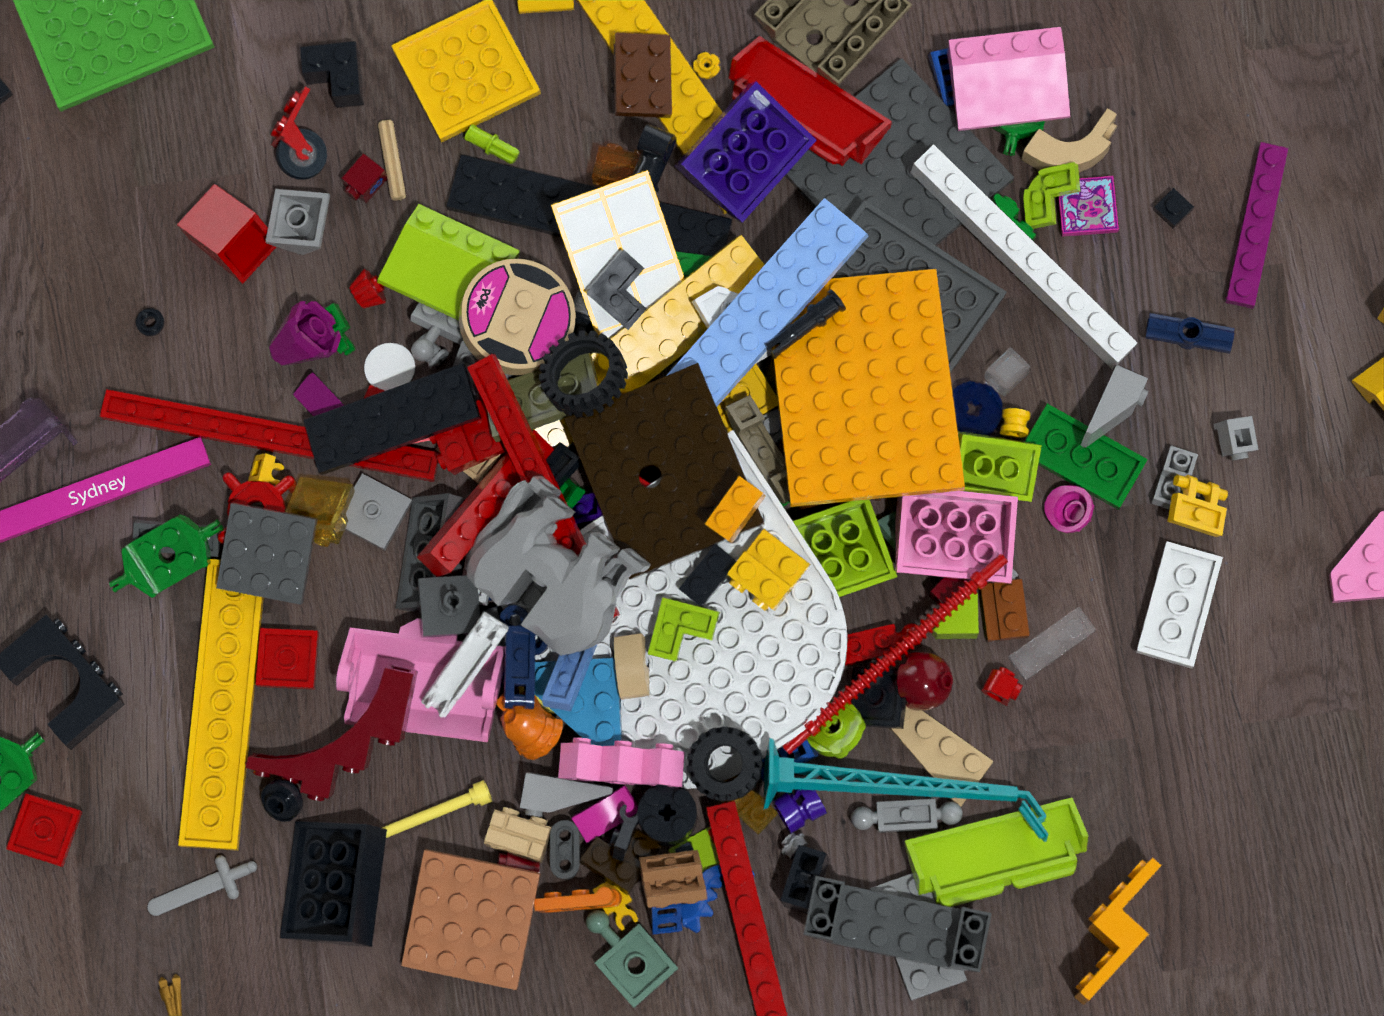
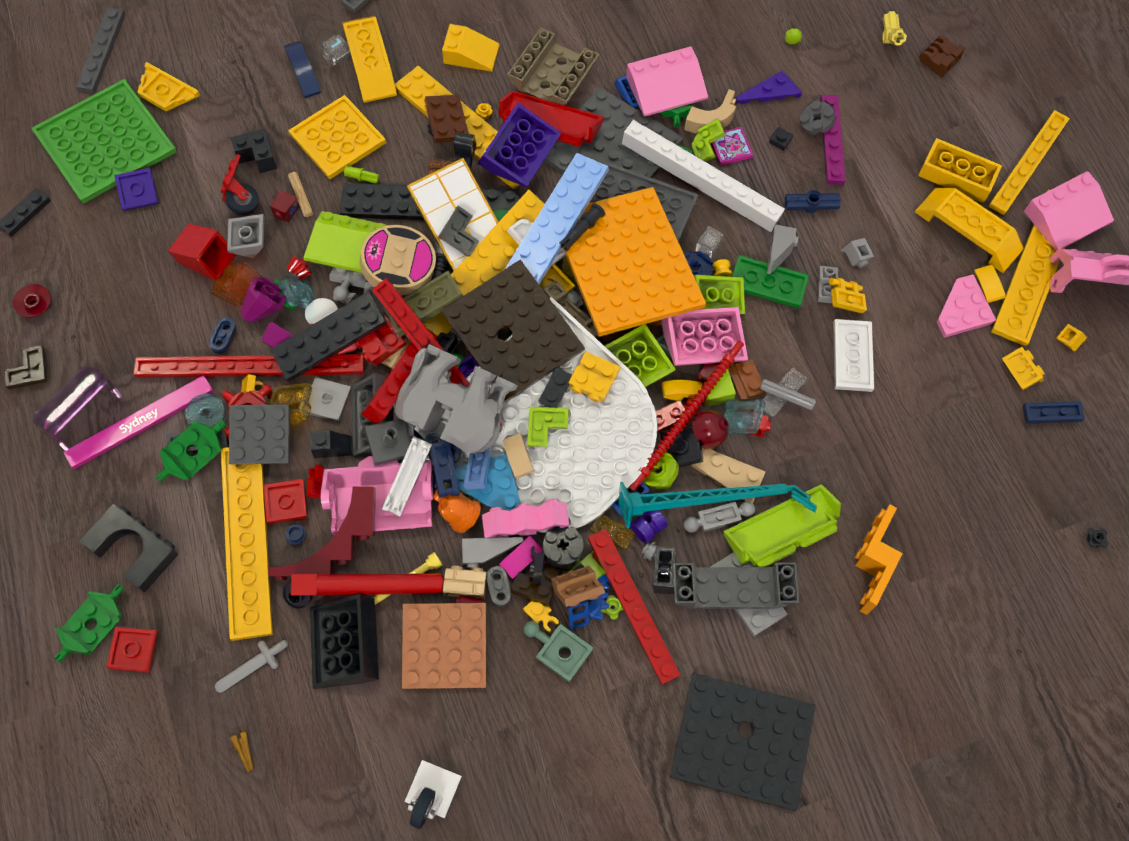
camera: 20 degrees left, 10 degrees down
(144, 104) = (136, 189): none -> dark purple plate
(146, 315) = (155, 310): black plate -> none
(206, 485) = (203, 402): none -> clear light blue plate
(237, 378) = (221, 335): none -> dark blue plate
(270, 296) = (234, 283): none -> clear orange slope
(293, 711) = (295, 534): none -> dark blue plate
(306, 797) = (366, 584): none -> red brick
(334, 641) = (314, 482): none -> red plate
(349, 321) = (296, 291): none -> clear light blue plate
(367, 585) = (330, 444): none -> black slope
(580, 900) = (515, 616): orange plate -> none
(596, 397) = (454, 294): black tyre -> none
(699, 759) = (588, 488): black tyre -> none
(719, 923) = (613, 613): none -> lime plate
(735, 509) = (565, 339): light orange brick -> none
(900, 605) = (679, 389): none -> yellow slope
(977, 678) = (743, 421): none -> clear light blue plate
(1058, 650) = (788, 394): none -> light grey axle
(1069, 508) = (770, 311): dark pink piece -> none
(1190, 112) = (772, 88): none -> dark purple wing
(1233, 172) = (814, 110): none -> dark grey plate
(1245, 24) = (793, 36): none -> lime tile

